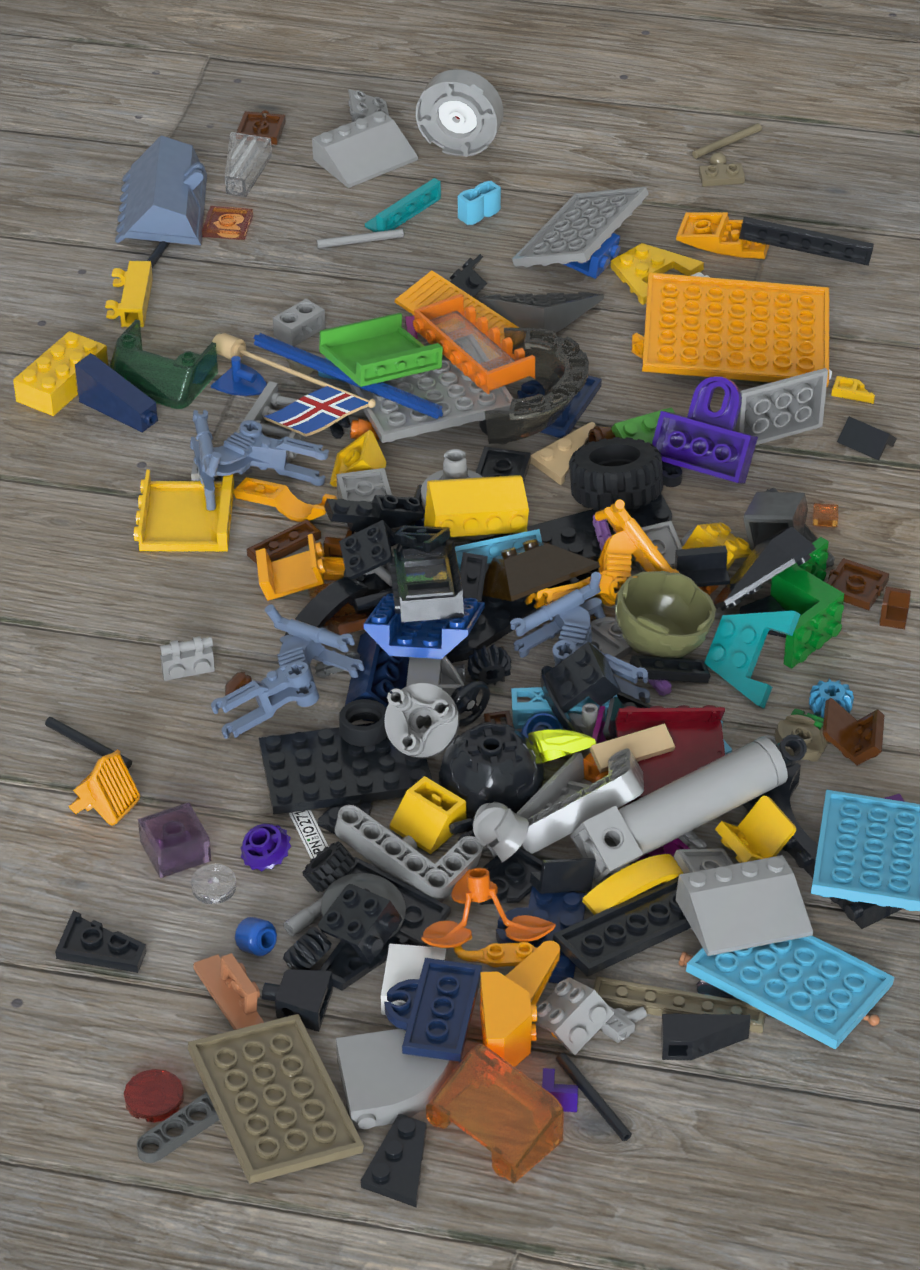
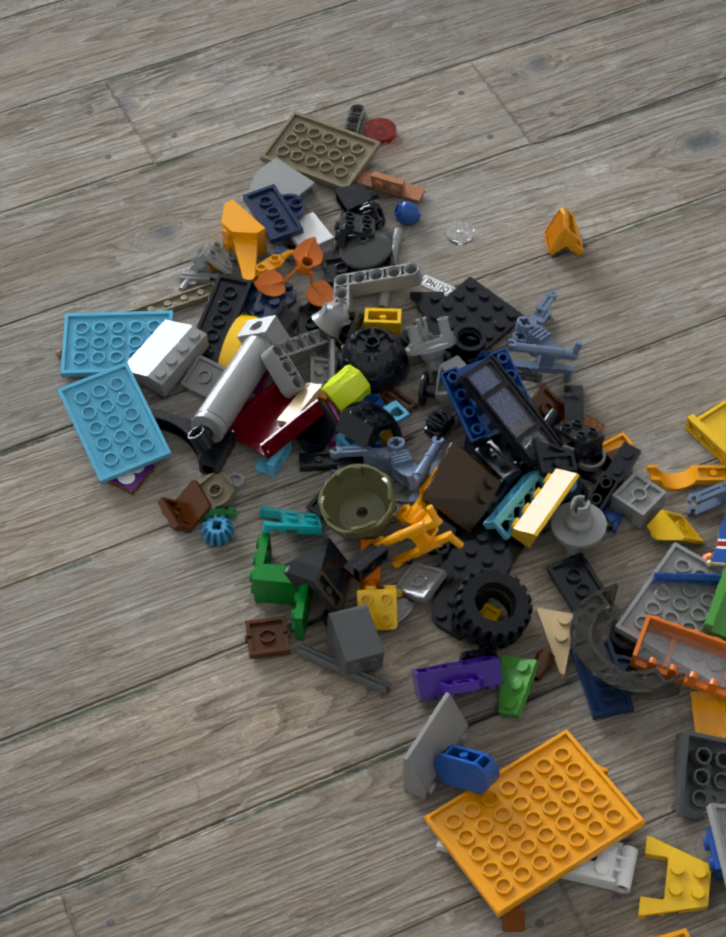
camera: 145 degrees right, 10 degrees up
(82, 739) = (612, 265): black bar -> none
(94, 945) = (479, 171): black wing -> none
(174, 840) = (498, 230): clear purple brick -> none
(187, 658) = (612, 328): light grey plate -> none
(238, 680) = (572, 336): reddish brown arm -> none
(265, 846) = (453, 258): dark purple piece -> none
(286, 541) = (657, 448): reddish brown tile -> none
(291, 573) = (626, 423): light orange panel -> none
(328, 866) = (403, 254): black tyre -> none
(398, 1162) = (240, 164): black wing -> none
(499, 1111) = (206, 193): clear orange windscreen -> none
(564, 1093) = (190, 227): dark purple panel -> none
(593, 1096) = (176, 240): black piece -> none
(602, 531) = (459, 563): medium lavender axle -> none
(700, 1034) = (142, 289): black slope -> none
(759, 834) = (189, 402): yellow bracket -> none
(764, 358) = (466, 769): none -> blue brick
(825, 515) = (334, 692): clear orange tile -> none
(851, 389) = (408, 841): yellow tile -> none
(865, 438) = (358, 789): black panel -> none
(895, 608) = (226, 630): reddish brown panel -> none

